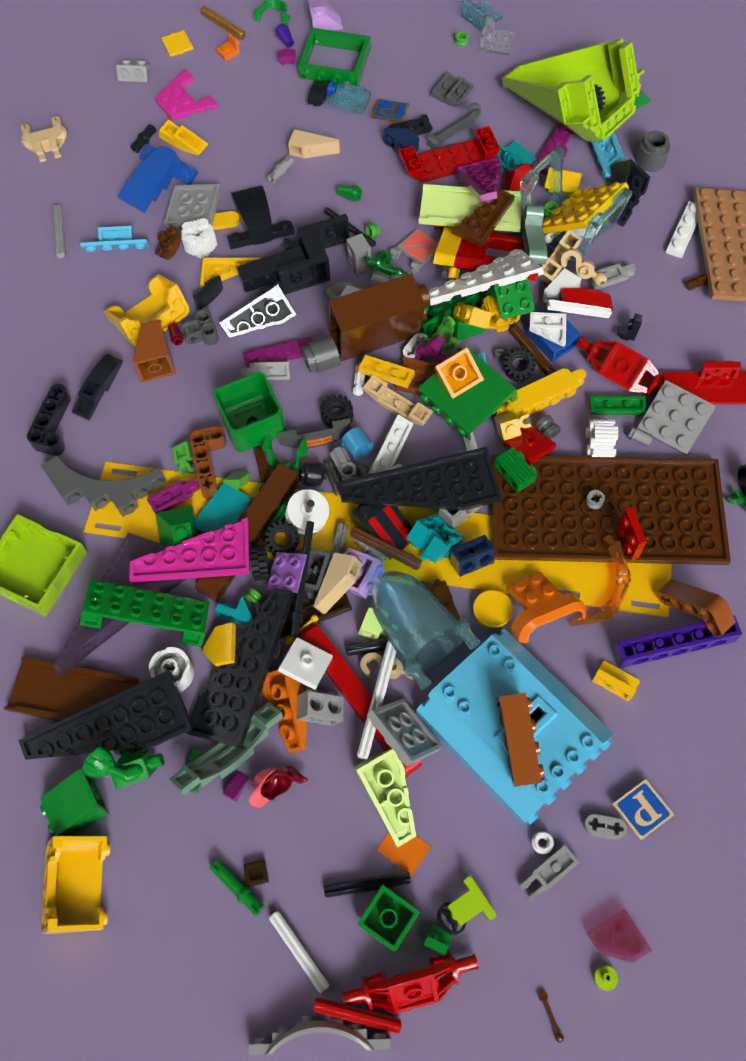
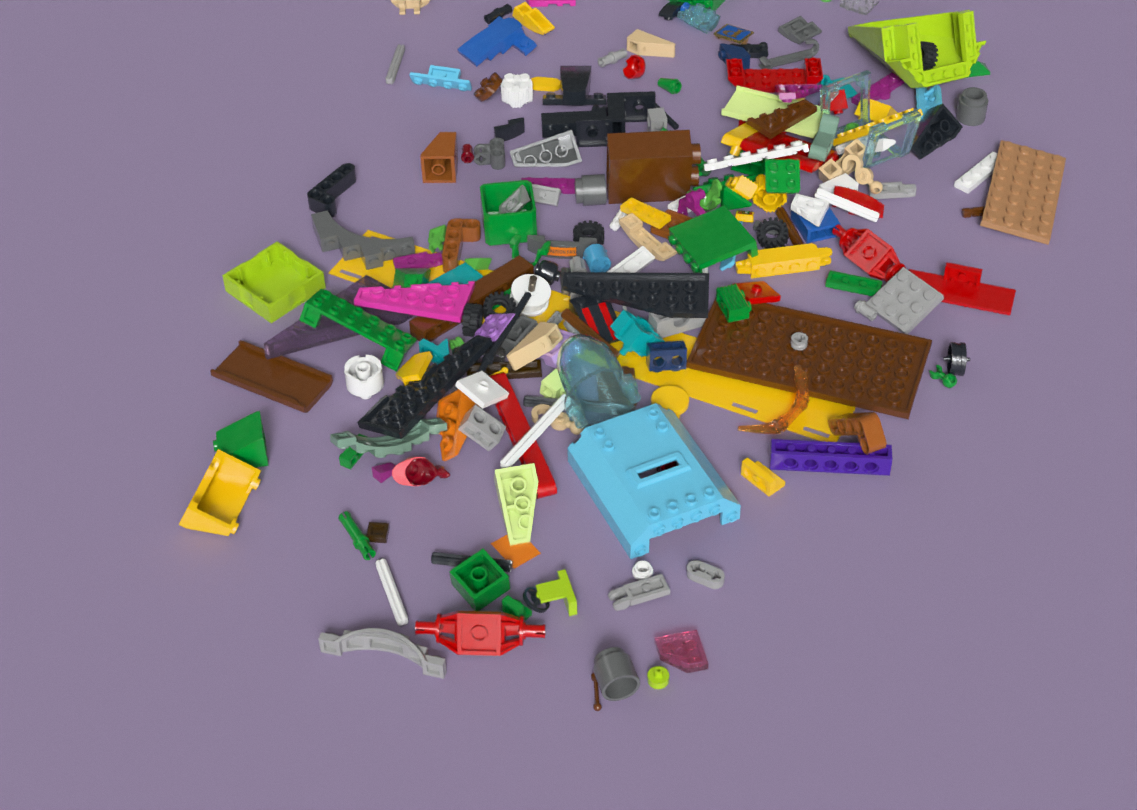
camera: 15 degrees right, 20 degrees down
(95, 385) = (380, 172): black slope -> none
(127, 770) = (294, 426): green torso -> none
(128, 720) = (313, 395): black wing -> none
(163, 304) = (469, 129): yellow windscreen -> none
(192, 203) = (523, 62): light grey plate -> none
(223, 267) = (531, 115): yellow wing -> none
(252, 402) = (515, 201): none -> light grey slope
(262, 465) = (505, 255): reddish brown axle -> none
(307, 179) = (635, 67): none -> red hair
(357, 1015) = (423, 638): red axle -> none
(372, 230) = (678, 115): bright green plate -> none
(404, 731) = (549, 457): light grey plate -> none
(417, 247) = (711, 136): flag -> none
(458, 373) = (707, 217): light orange slope -> none
(484, 348) = (745, 216): none -> yellow slope
(509, 425) = (742, 273): yellow brick -> none
(520, 739) = (645, 466): dark orange wedge -> none
(541, 604) = (714, 397): orange piece -> none
(547, 426) = (779, 284): dark grey wheel -> none
(568, 999) = (615, 674): none -> dark grey piece
(602, 438) = (825, 298): white brick -> none
(631, 534) = (818, 365): red plate -> none
(632, 328) = (893, 229): black bracket -> none
(643, 809) = (745, 567): piece -> none

